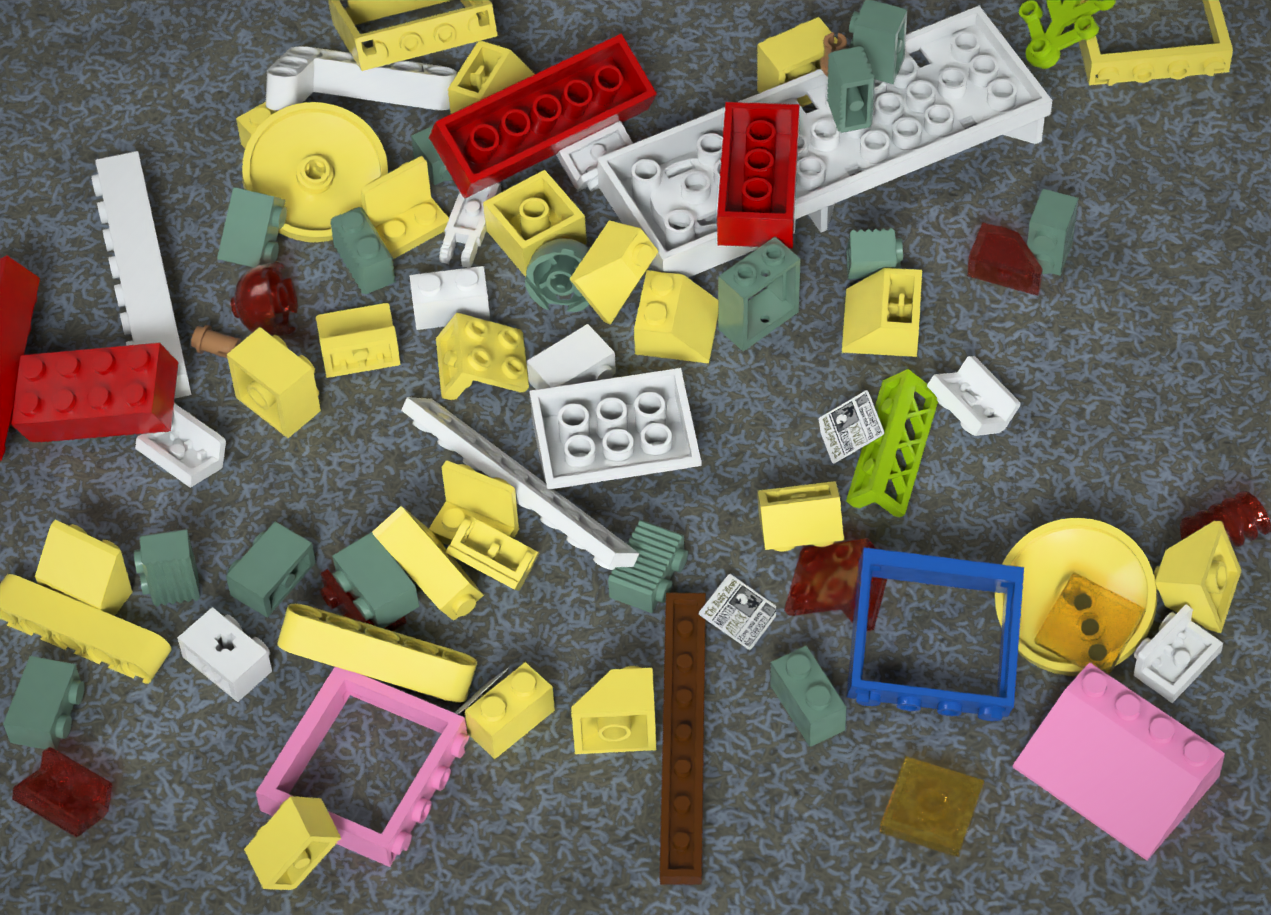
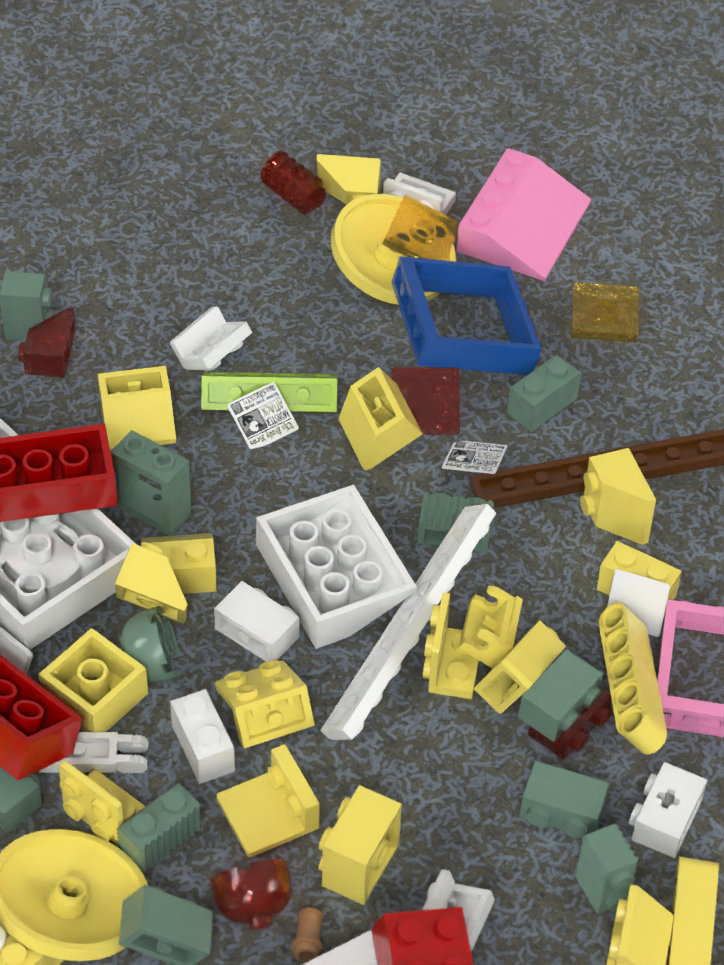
camera: 110 degrees left, 5 degrees down
(872, 251) = (82, 406): sand green brick -> none

